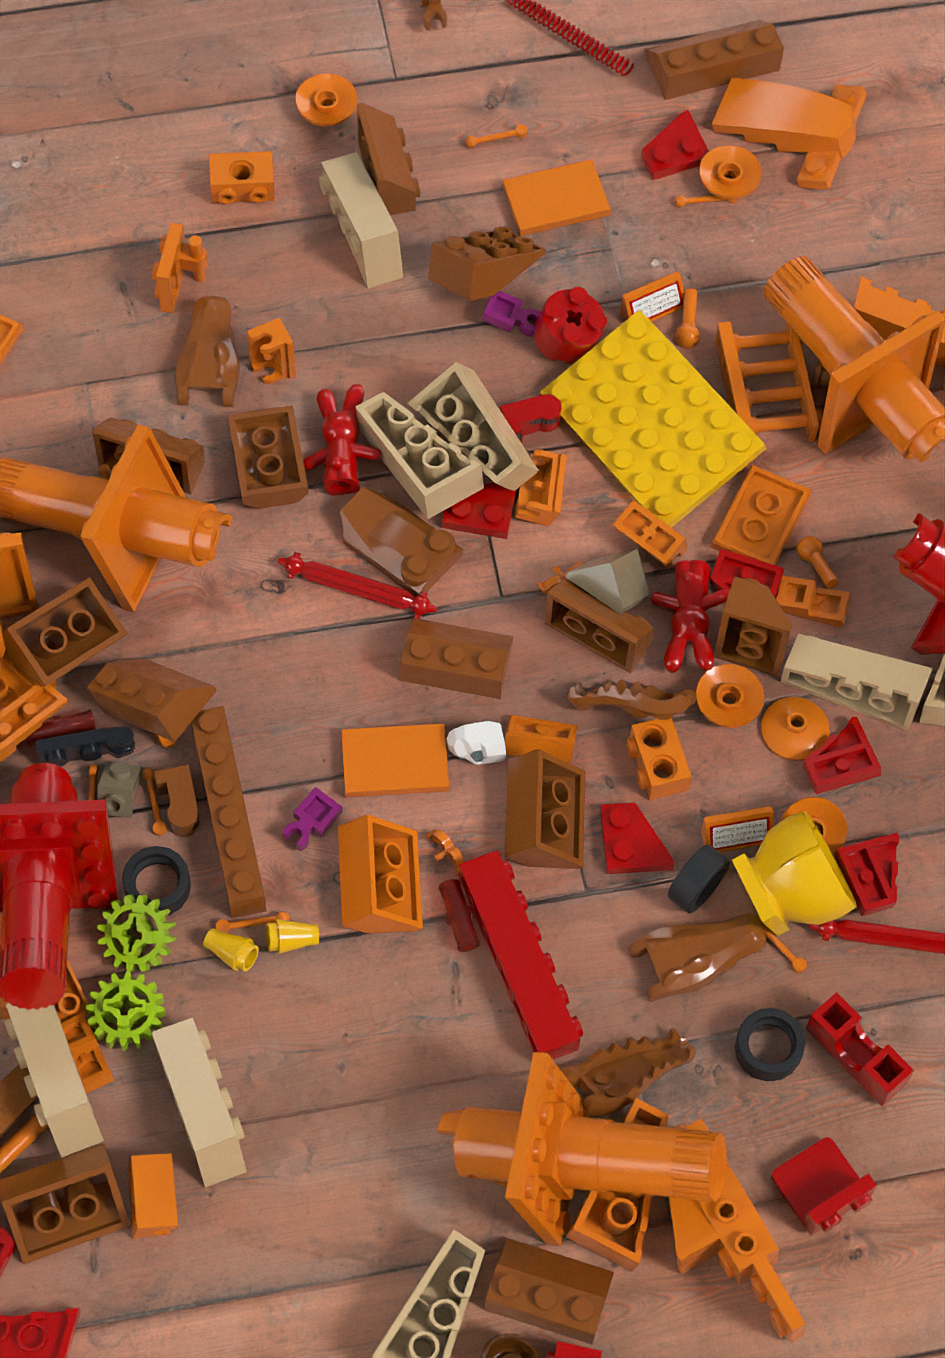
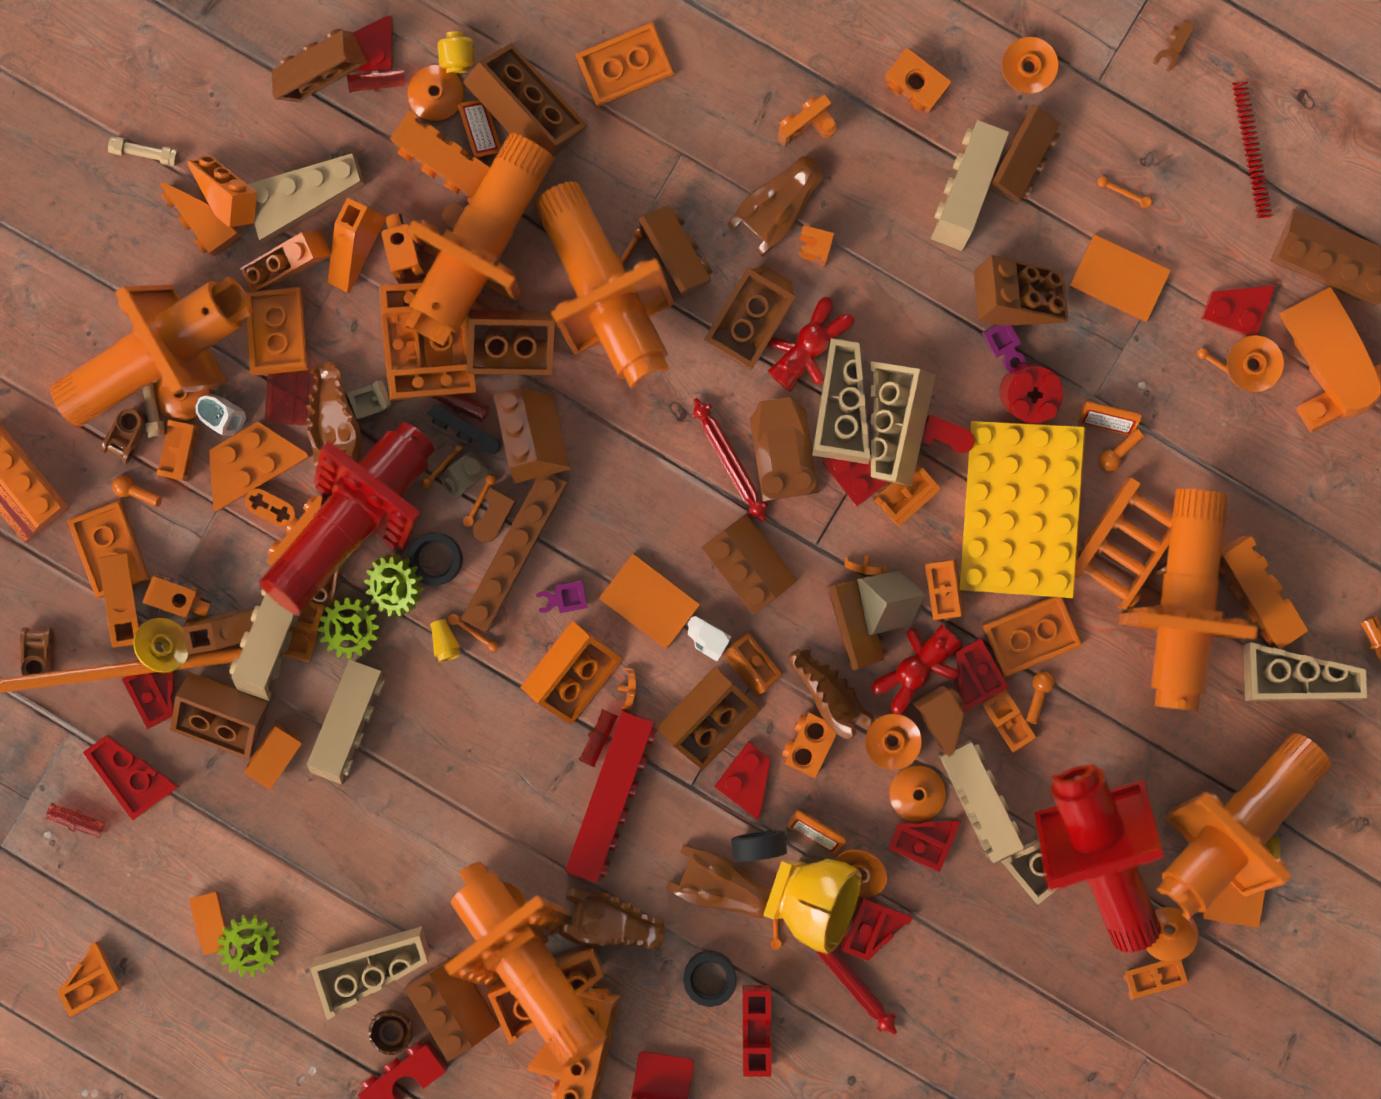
camera: 45 degrees right, 25 degrees up
(290, 935) = (486, 663): yellow cone -> none

